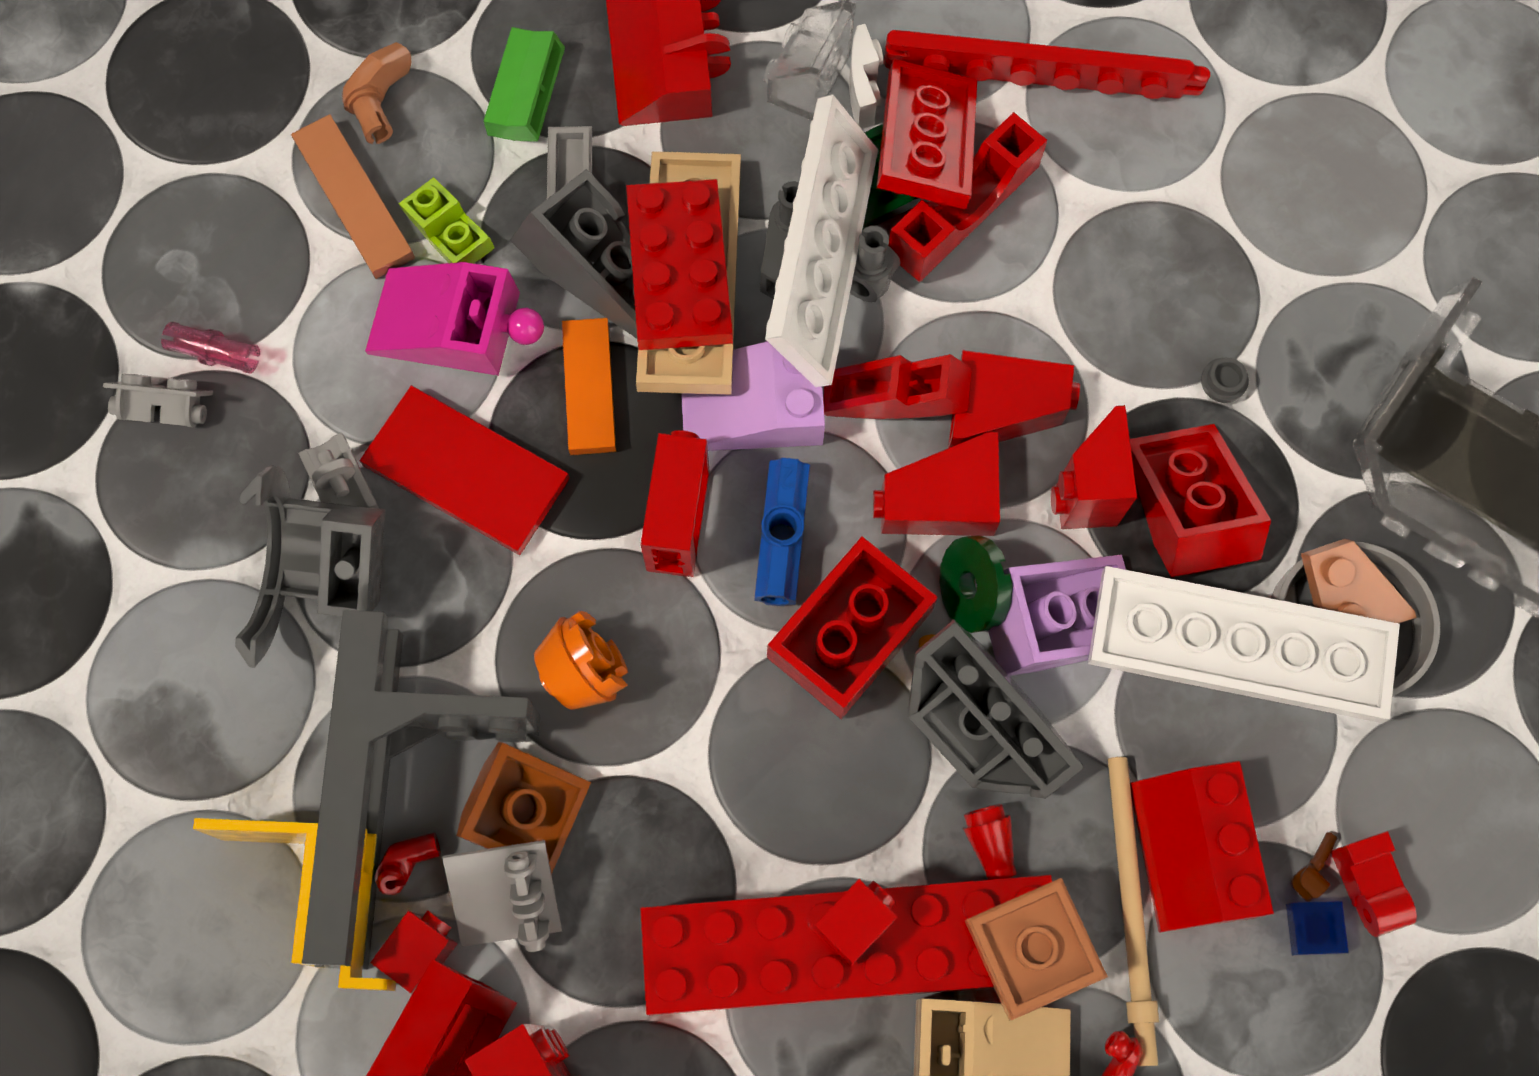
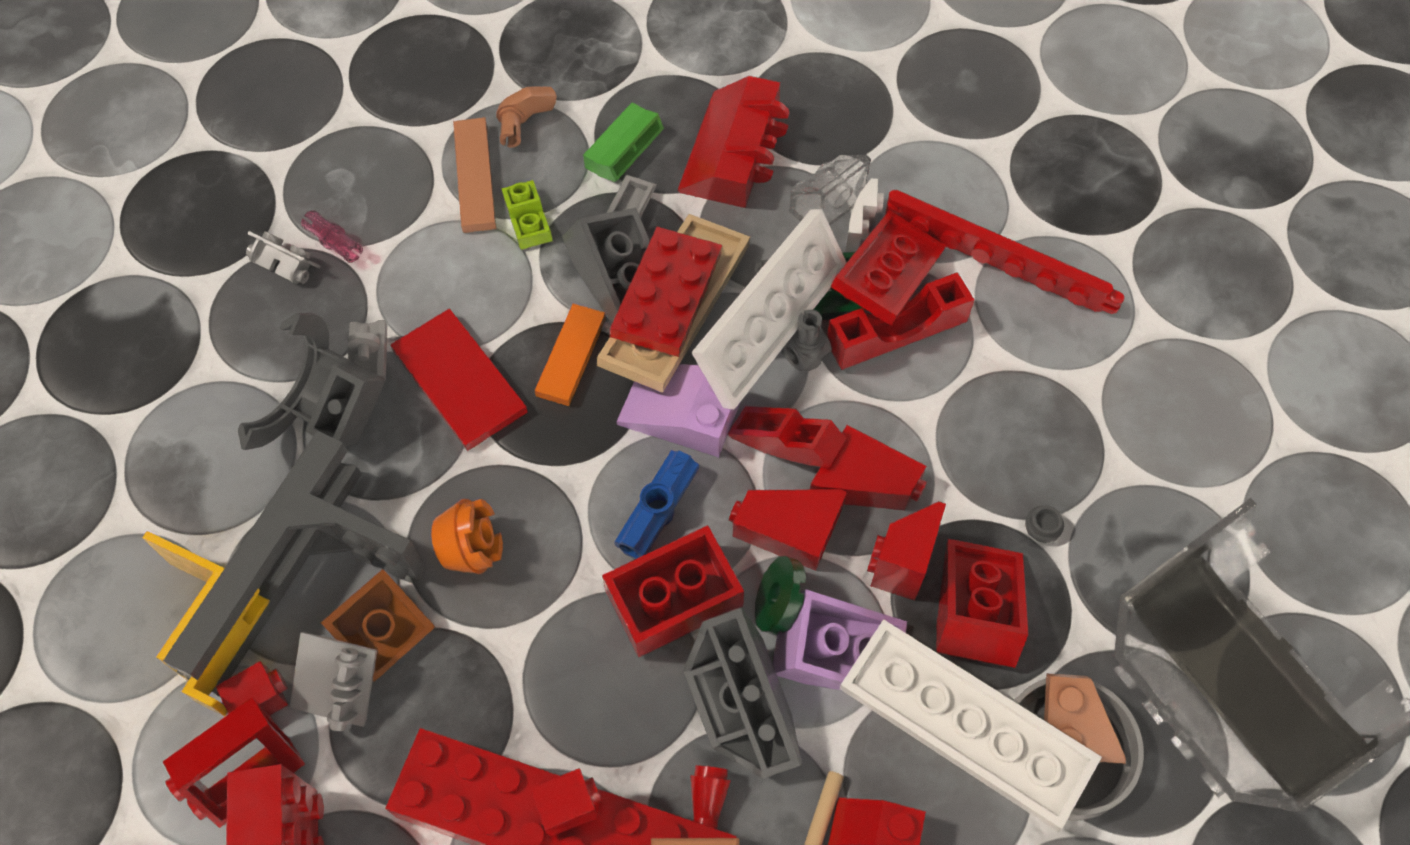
camera: 25 degrees right, 10 degrees down
(401, 859) = (278, 627): red arm -> none
(442, 319) = (499, 273): dark pink slope -> none
(675, 504) = (586, 453): red window -> none

